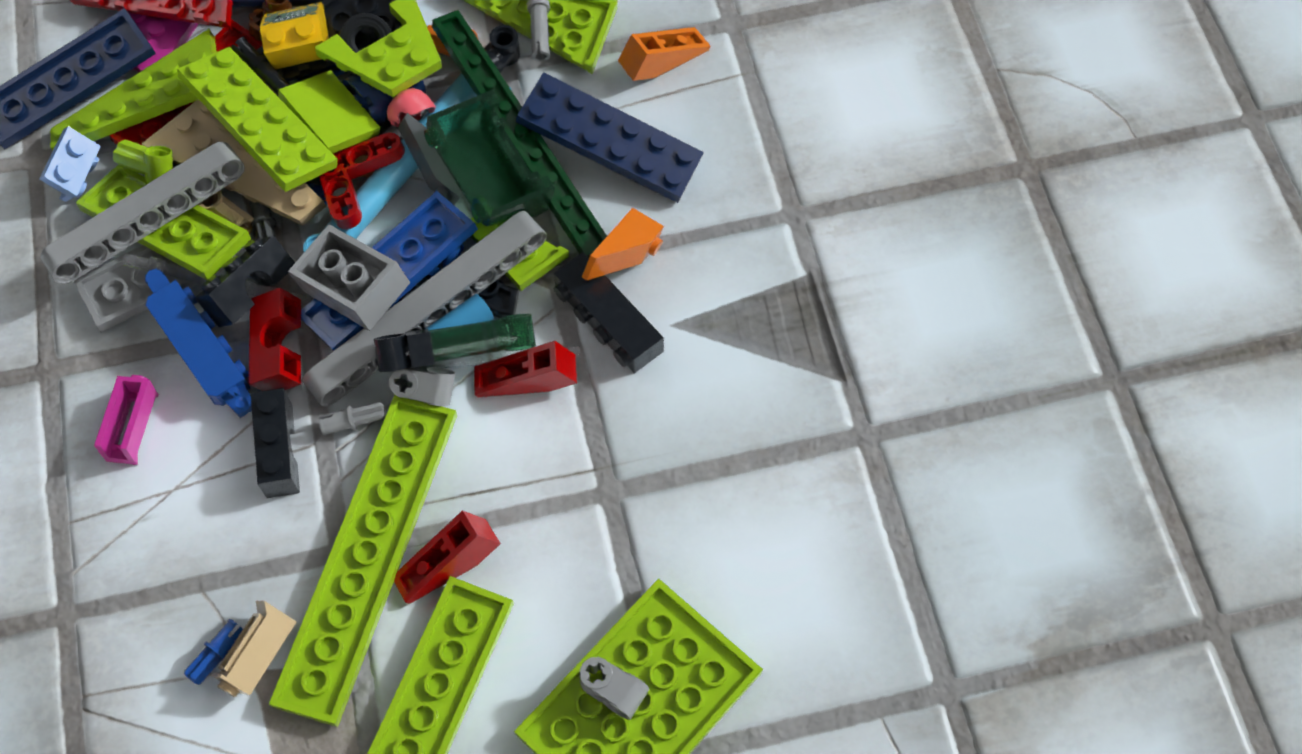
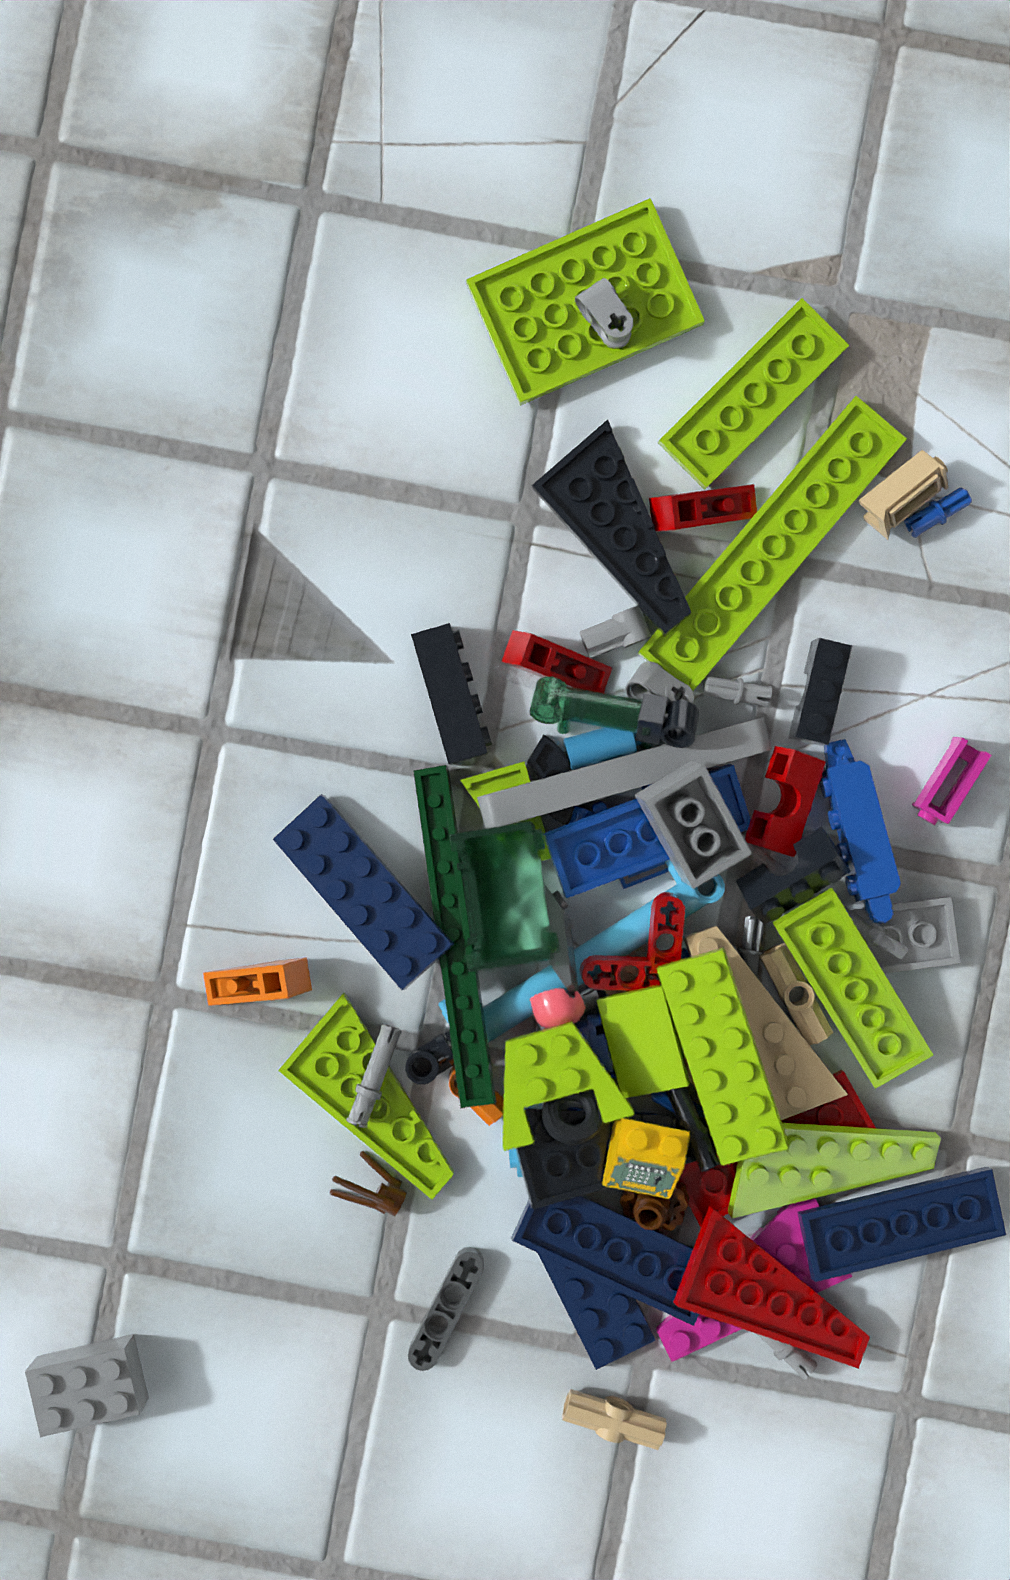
camera: 155 degrees left, 25 degrees up
(70, 163) = (926, 1102): light blue bracket -> none
(142, 213) = (871, 993): light grey beam -> none
(149, 161) = (843, 1063): lime piece -> none
(477, 426) = (622, 630): none -> light grey piece
(535, 515) = (606, 513): none -> black wing
(625, 245) = (394, 758): orange slope -> none

